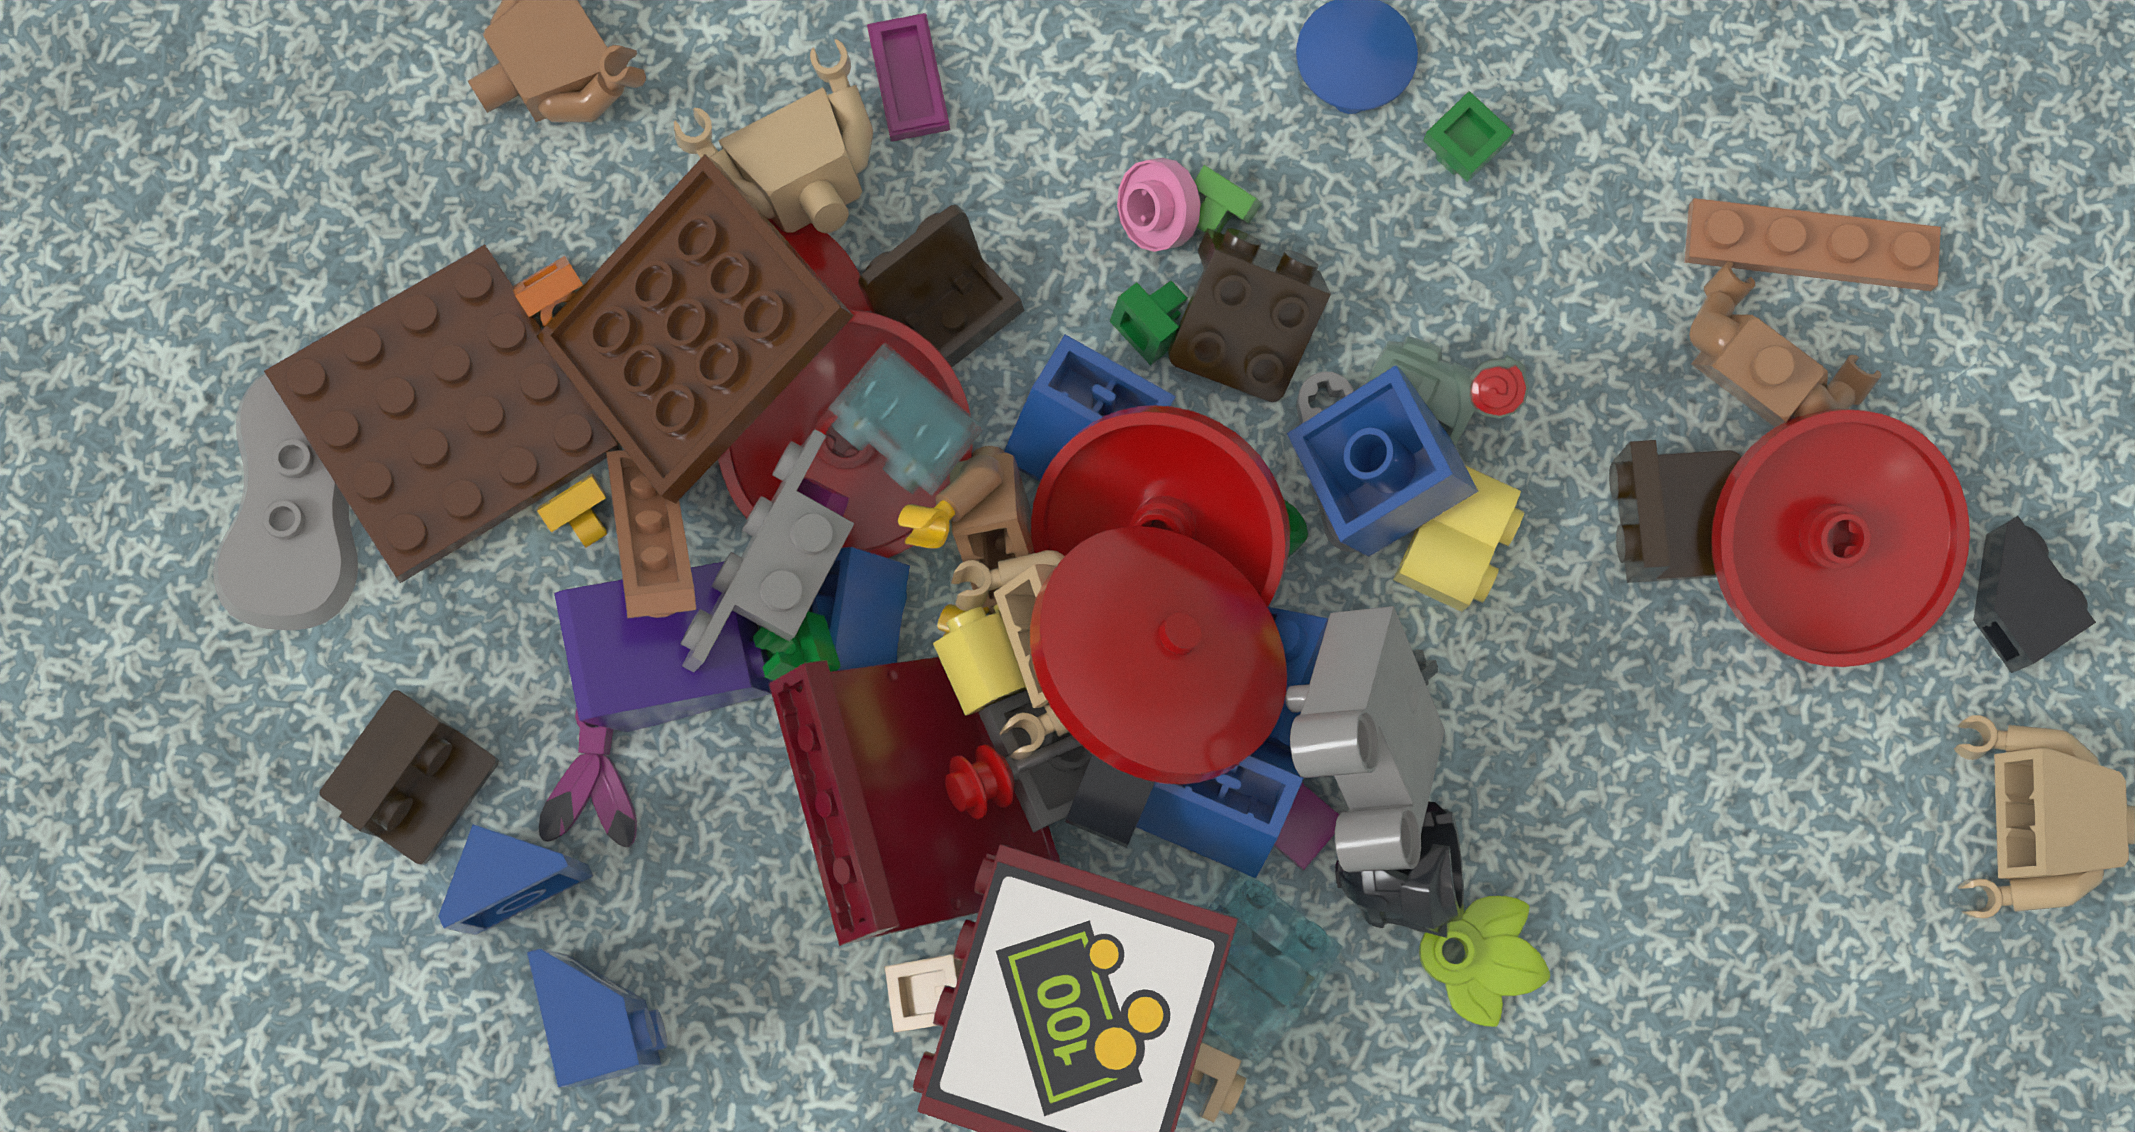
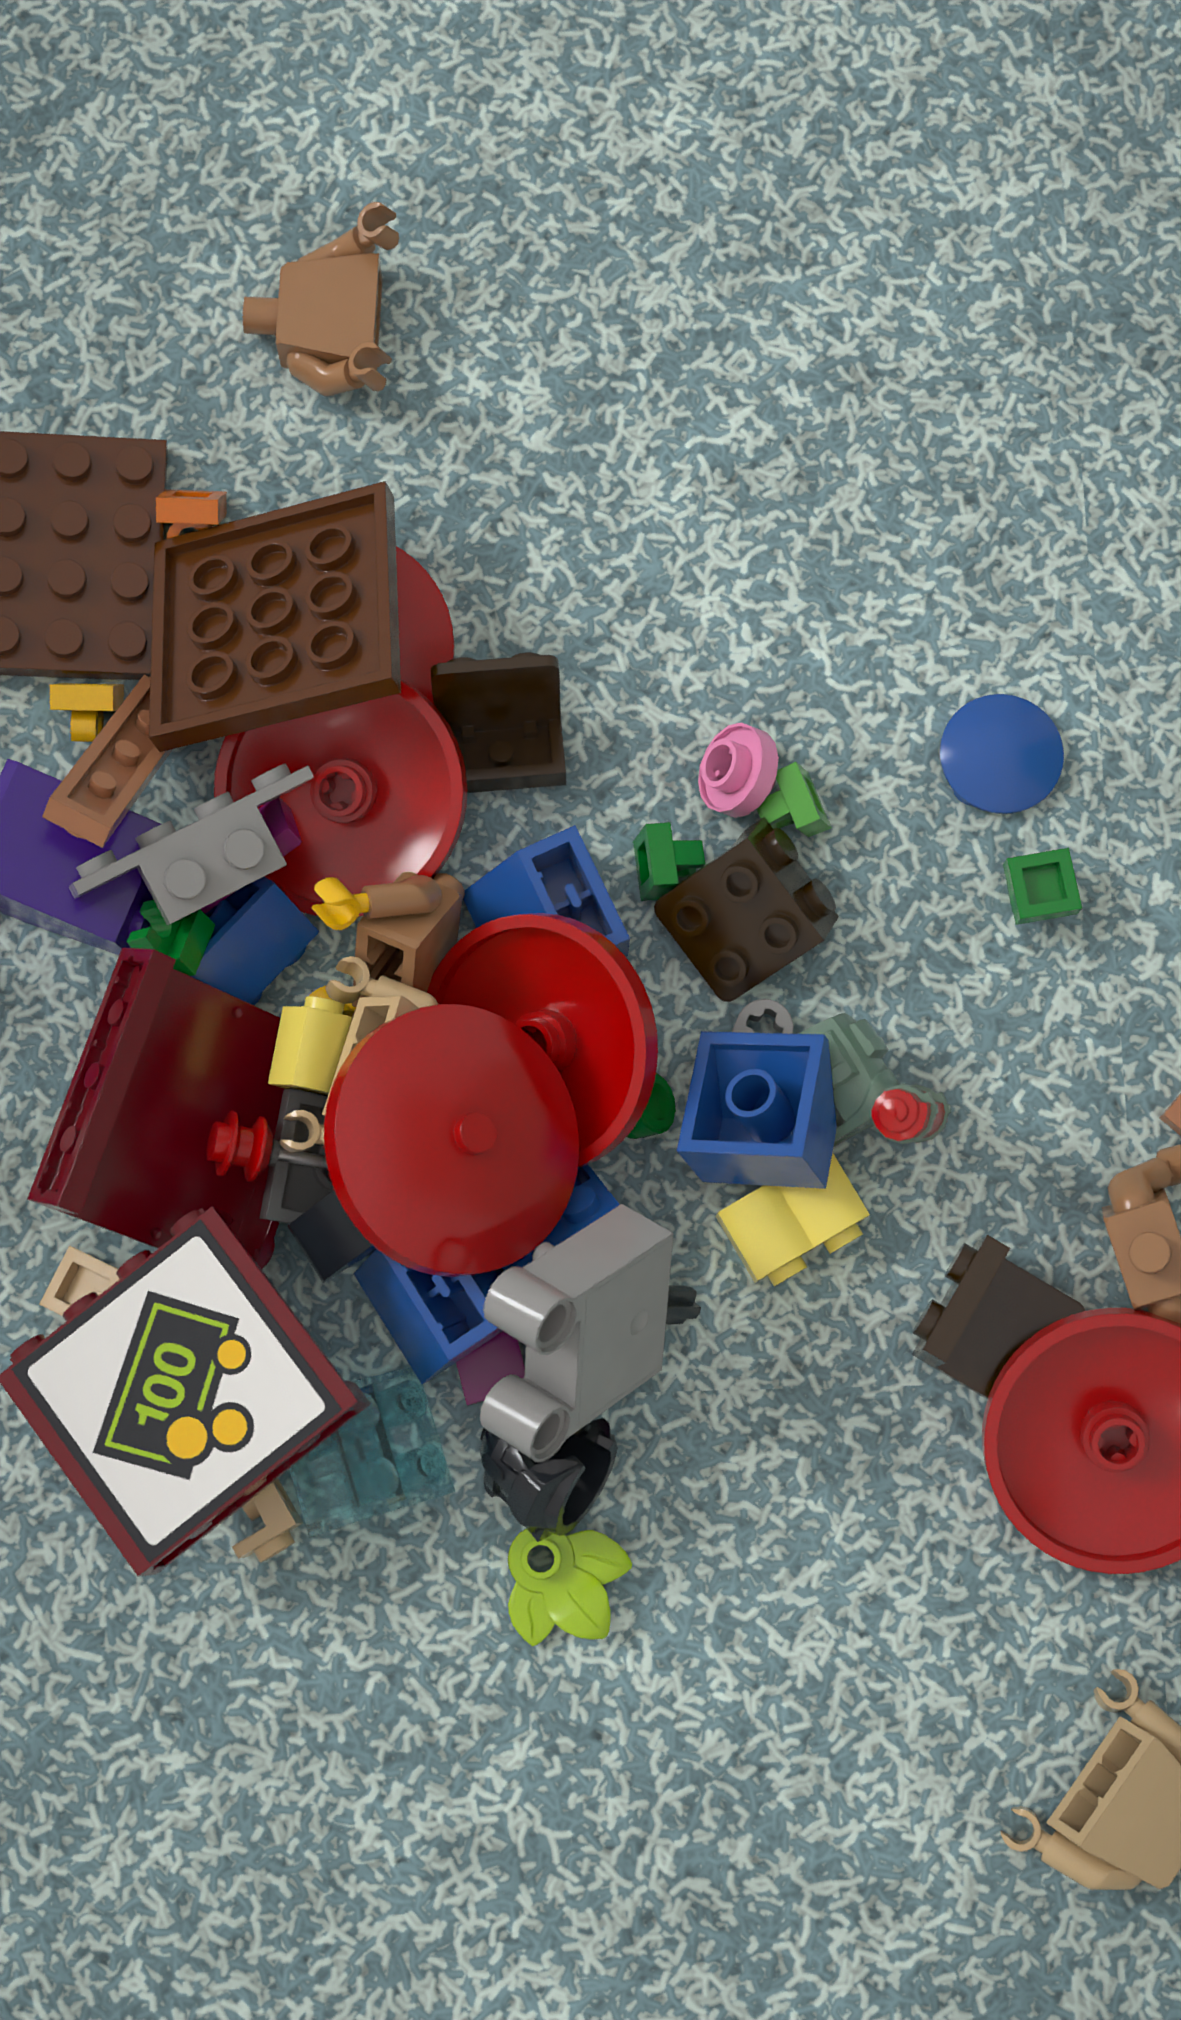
camera: 30 degrees right, 0 degrees up
(801, 158) = (467, 536): tan torso -> none
(905, 421) = (385, 806): clear light blue slope -> none
(908, 77) = (609, 527): magenta tile -> none

